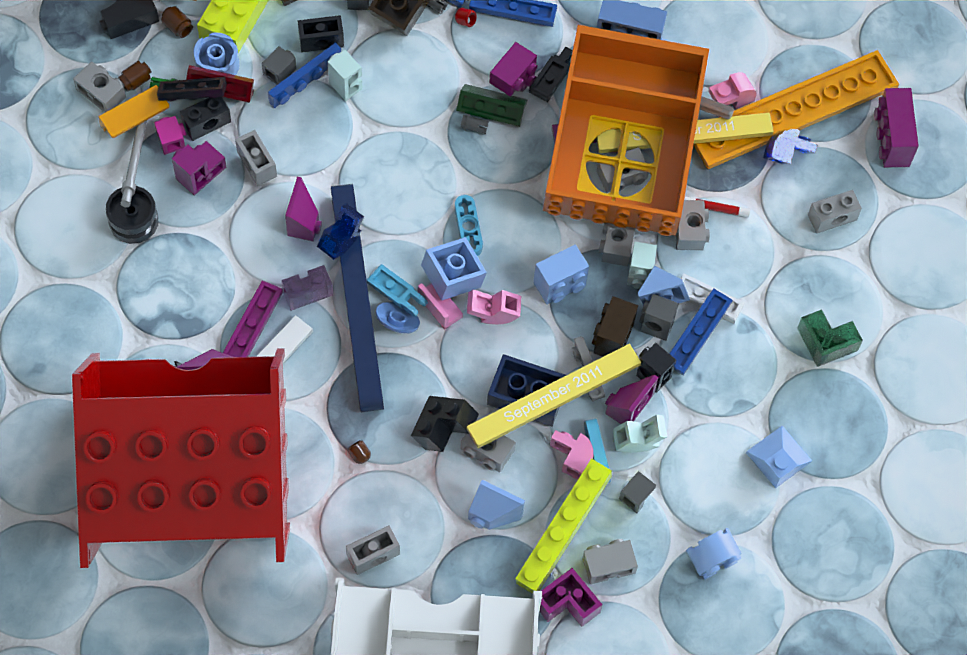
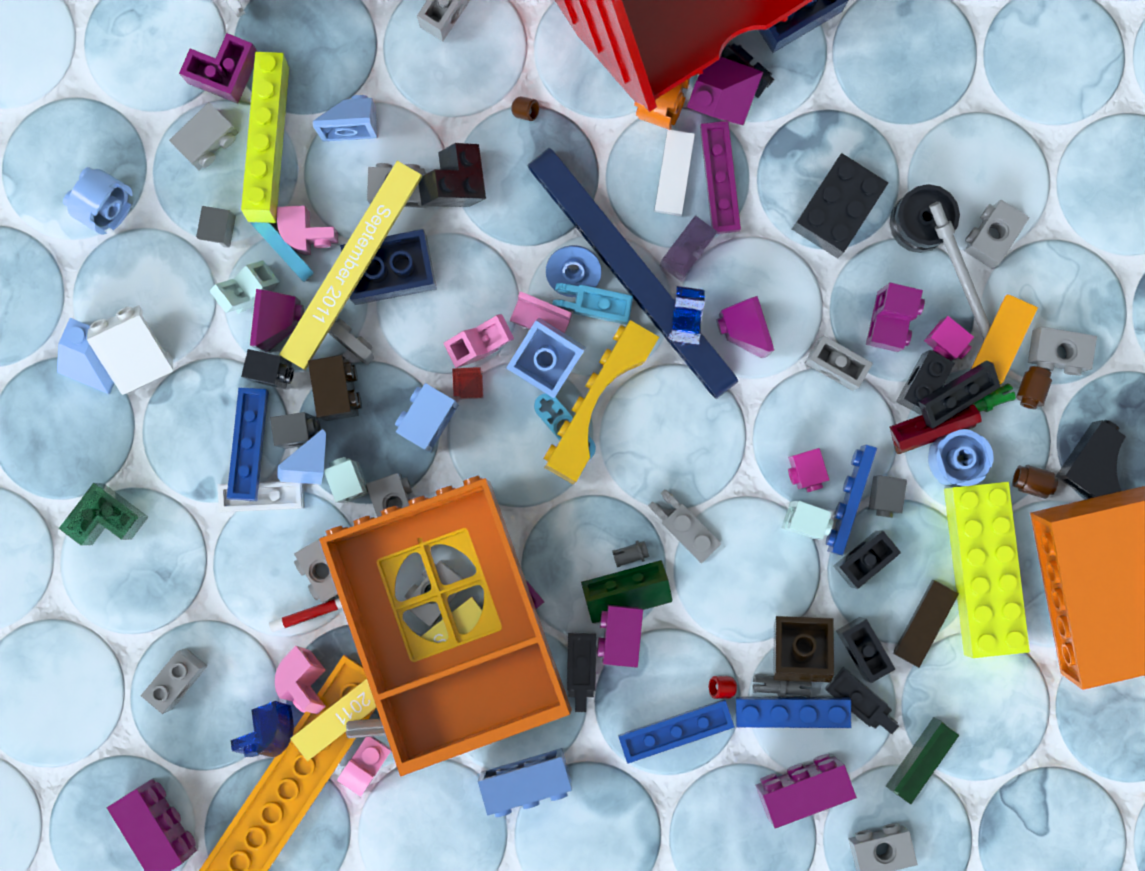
camera: 150 degrees right, 20 degrees up
(93, 171) = (1008, 223): none -> light grey brick
(183, 256) = (840, 206): none -> black brick
(321, 108) = (808, 470): none -> dark pink brick
(394, 244) = (572, 450): none -> yellow arch
(426, 120) = (686, 528): none -> light grey hinge
(520, 287) = (468, 383): none -> clear red panel
(748, 433) = (129, 349): none -> white panel
(750, 167) = (294, 680): none -> bright pink brick

